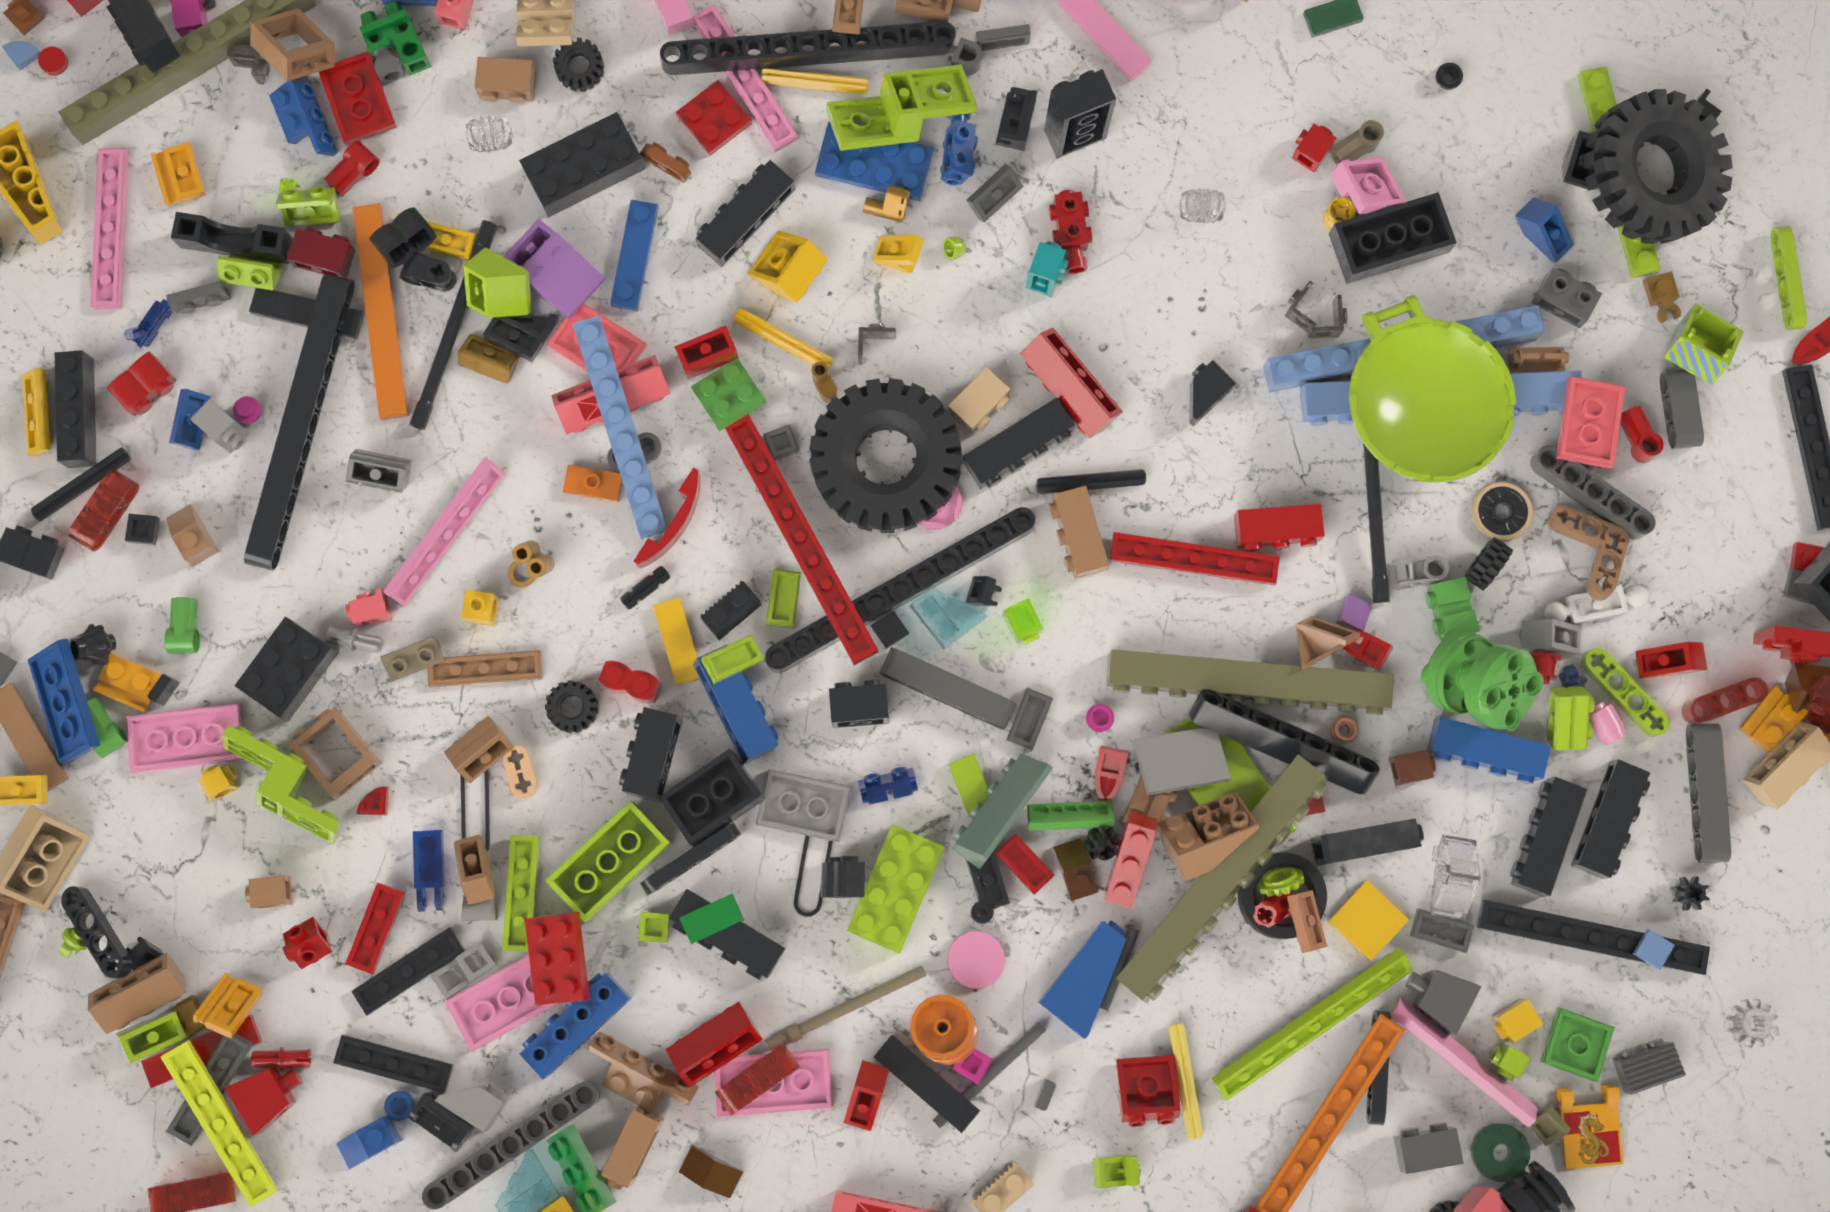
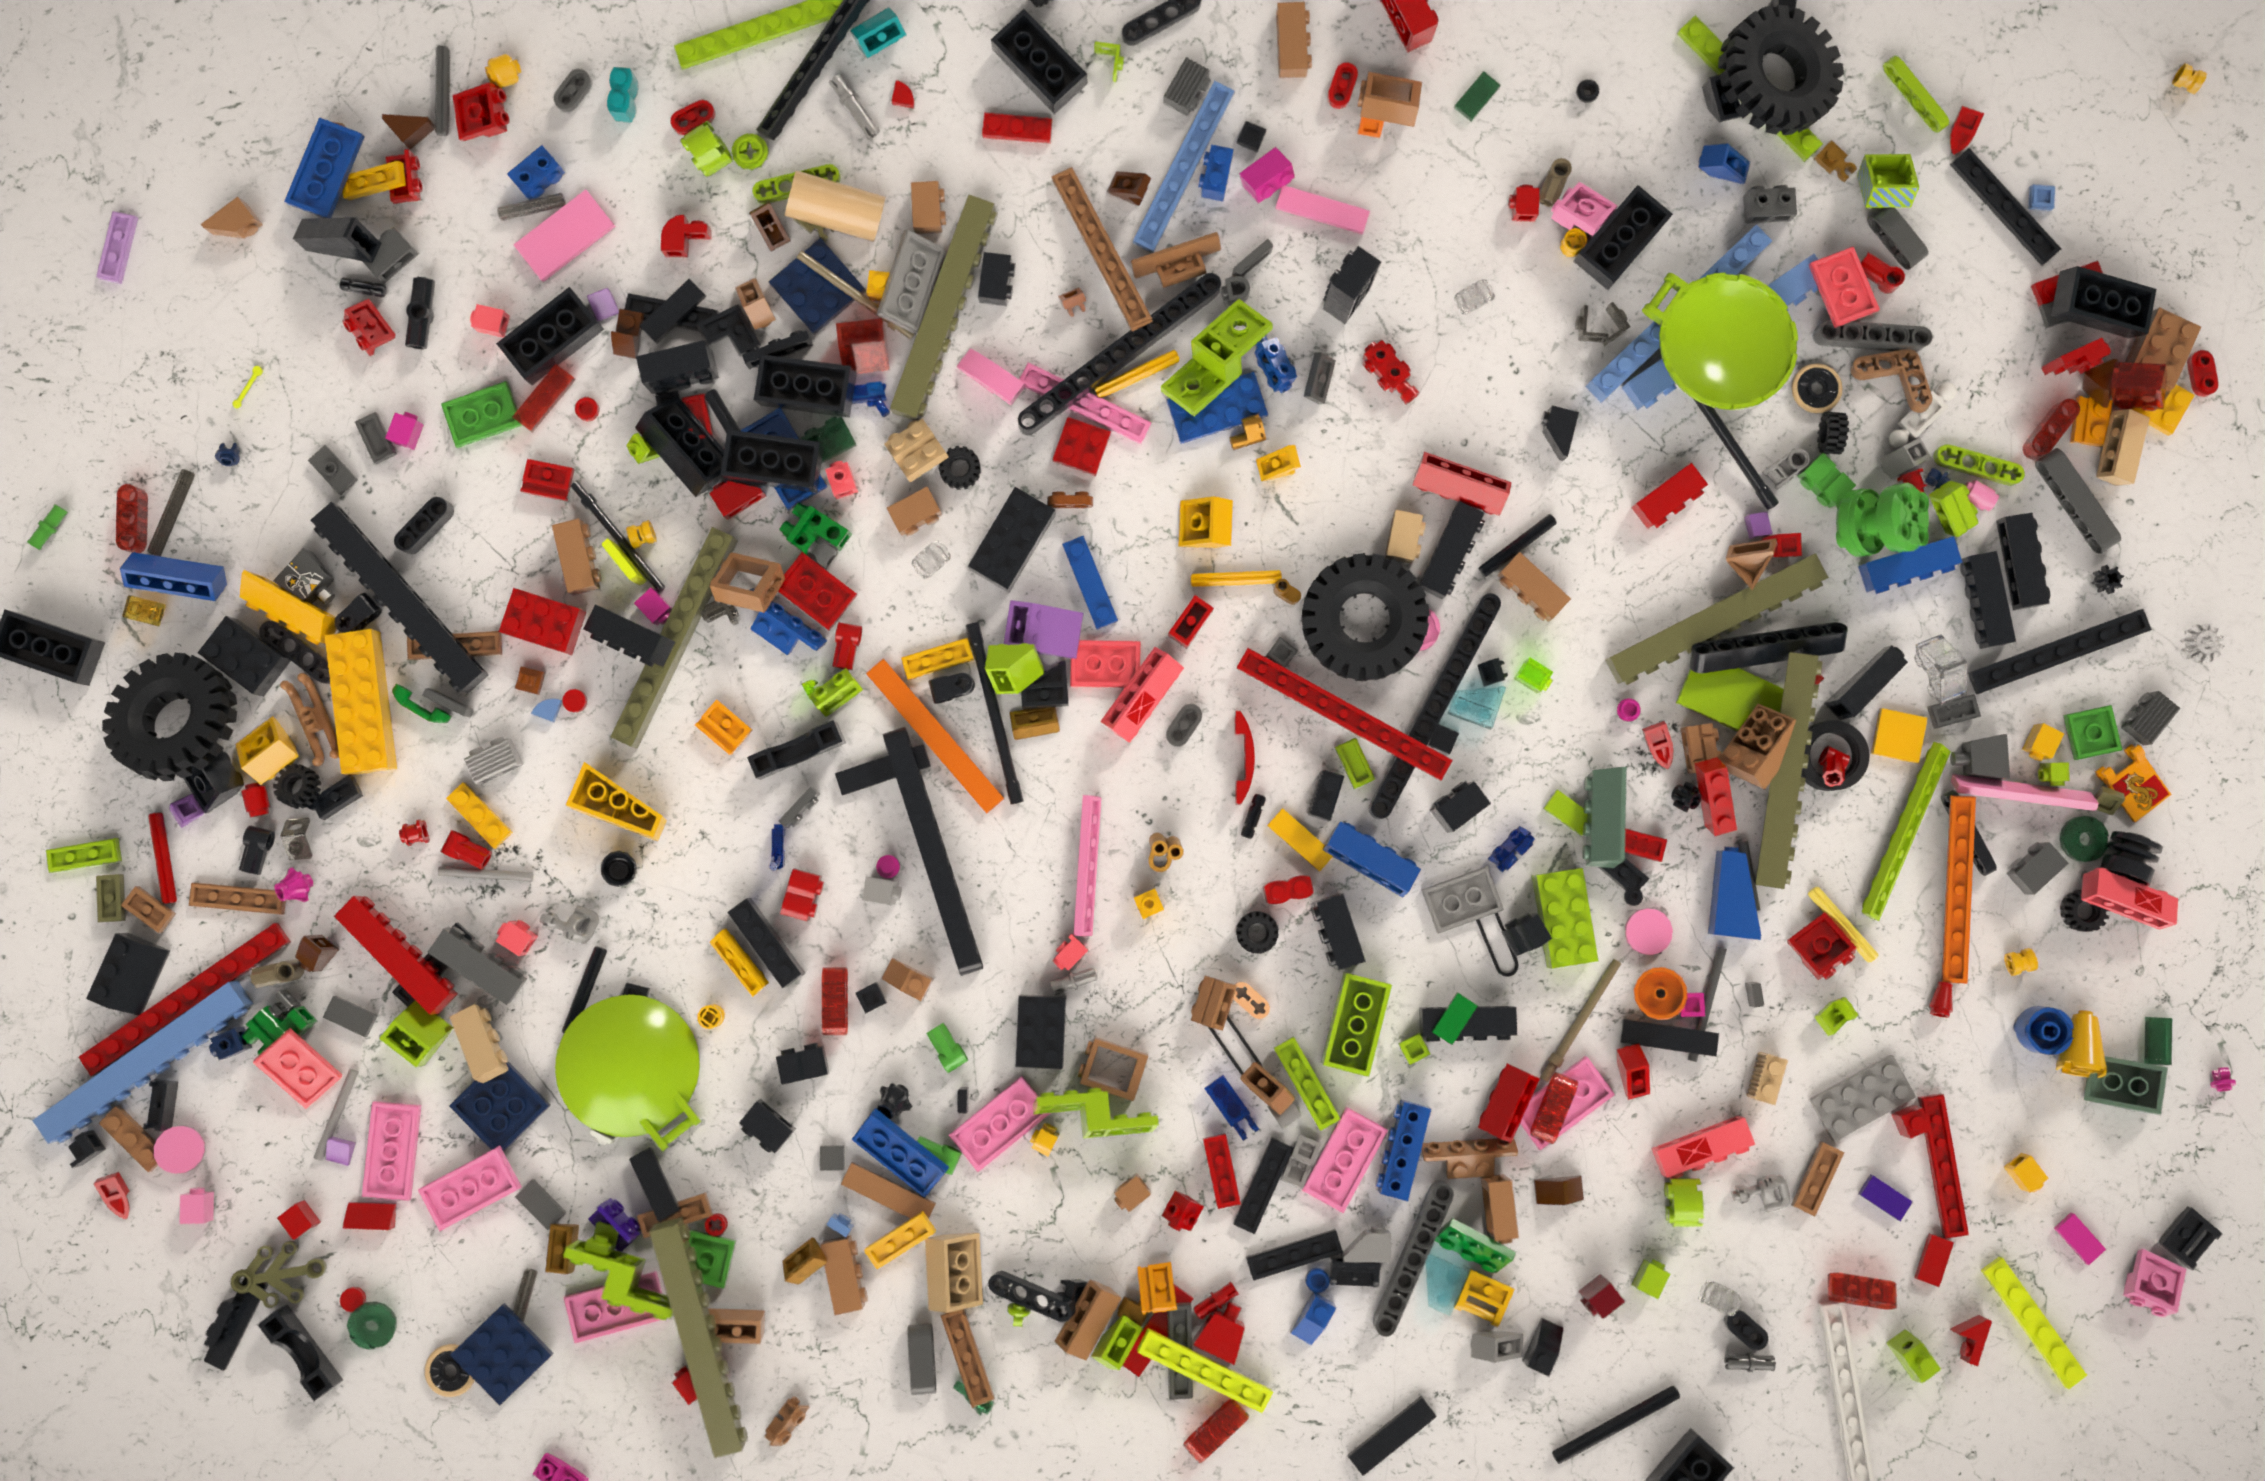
camera: 30 degrees left, 5 degrees up
(80, 484) = (805, 993): black axle -> none
(109, 228) = (699, 797): bright pink tile -> none
(127, 682) = (934, 1111): light orange plate -> none
(184, 431) = (851, 896): blue plate -> none
(249, 272) = (825, 766): lime bracket -> none
(321, 253) = (866, 720): dark red brick -> none
(374, 802) = (1162, 1085): red tile -> none
(378, 470) = (1013, 851): dark grey brick -> none
(403, 237) = (921, 673): black brick -> none
(412, 658) = (1125, 969): dark tan hinge -> none
(486, 669) = (1177, 943): medium nougat tile -> none
(557, 959) = (1365, 1113): red plate -> none
(592, 483) = (1168, 765): orange plate -> none
(620, 426) = (1166, 714): medium blue plate -> none
(690, 859) = (1409, 986): black beam -> none
(712, 798) = (1399, 935): black brick -> none
(728, 394) = (1224, 642): bright green plate -> none
(732, 659) = (1352, 829): lime tile -> none
(745, 212) = (1151, 502): black brick -> none
(874, 331) = (1297, 532): clear smoke bracket -> none
(947, 688) = (1511, 755): dark grey beam -> none
(954, 247) = (1315, 431): lime hinge -> none
(1016, 118) = (1300, 313): black hinge -> none
(1029, 719) = (1580, 741): dark grey tile -> none
(1047, 268) = (1394, 411): teal brick -> none
(1070, 815) = (1654, 790): bright green plate -> none
(1076, 869) = (1677, 825): reddish brown slope -> none
(1181, 760) = (1707, 705): light grey tile -> none
(1194, 558) = (1624, 556): red plate -> none
(1281, 881) = (1822, 752): lime gear -> none
(1307, 921) = (1859, 760): nougat plate -> none
(1352, 726) = (1808, 609): nougat plate -> none
(1412, 767) = (1865, 610): copper brick -> none
(1537, 359) = (1776, 263): medium nougat hinge -> none
(1653, 949) = (2107, 634): medium blue tile -> none
(1671, 660) = (1997, 422): red slope -> none

